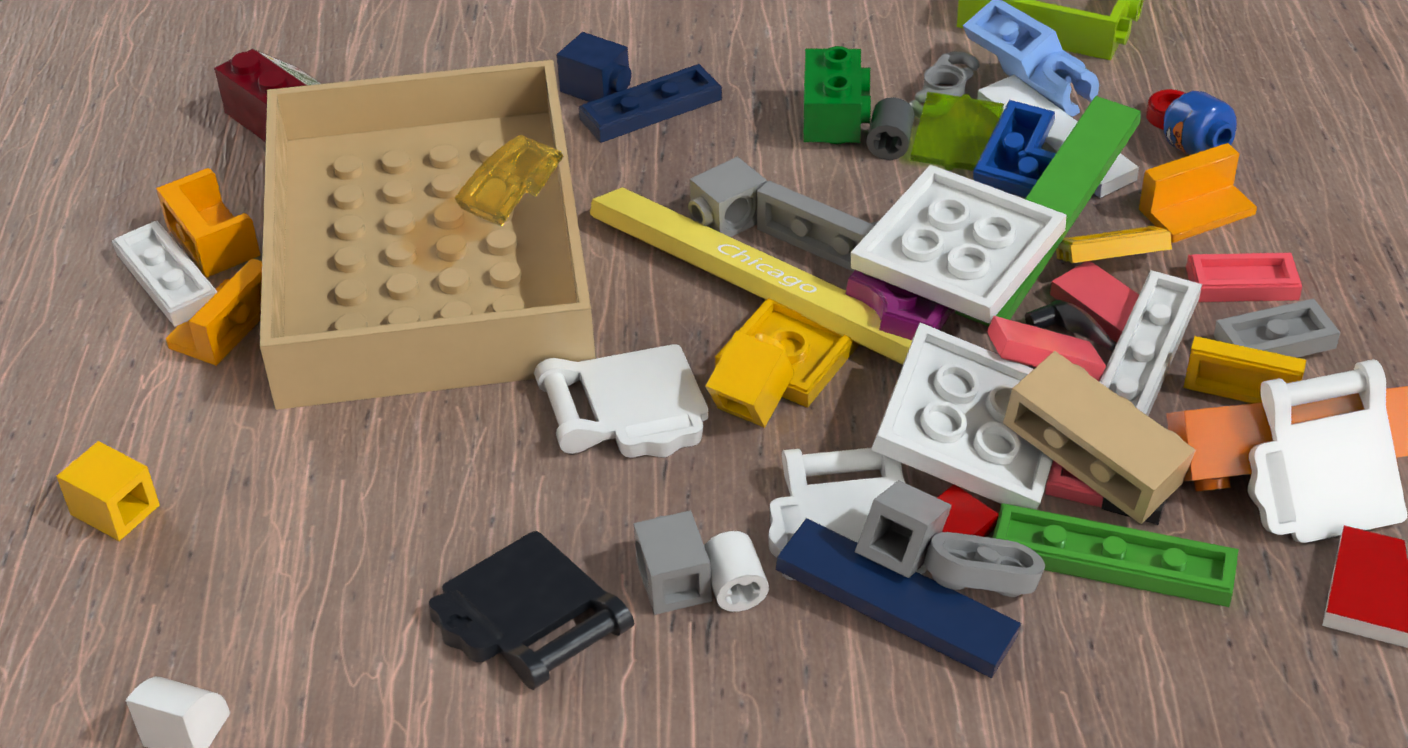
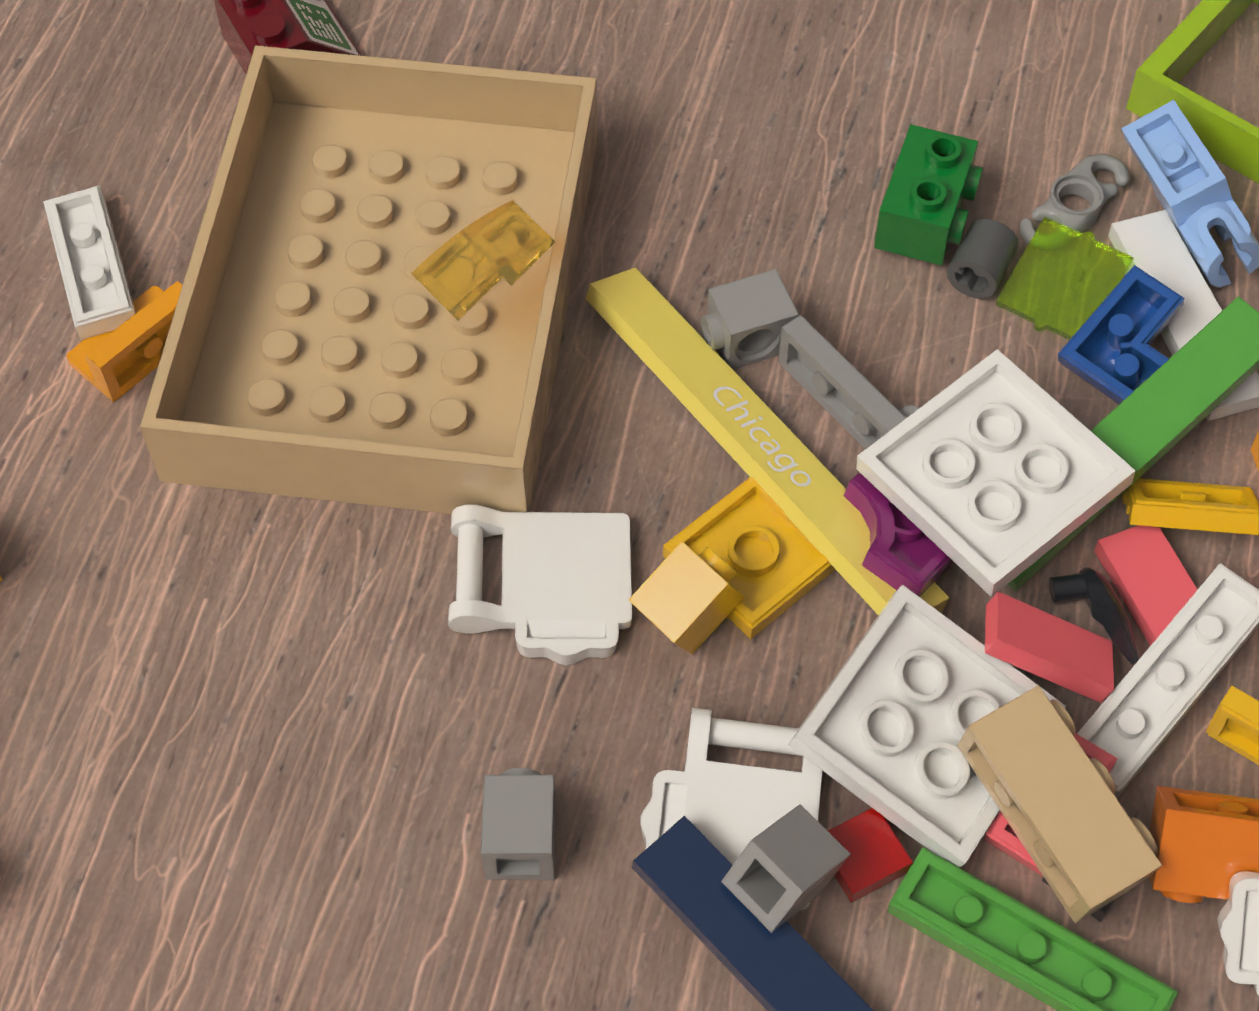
camera: 15 degrees right, 15 degrees up
(205, 225) = (151, 203): light orange panel -> none
(519, 600) = (339, 823): black piece -> none
(593, 67) = (656, 81): dark blue brick -> none
(650, 103) = (711, 142): dark blue tile -> none
(736, 571) = (585, 858): white gear -> none
(983, 564) = (858, 930): light grey plate -> none

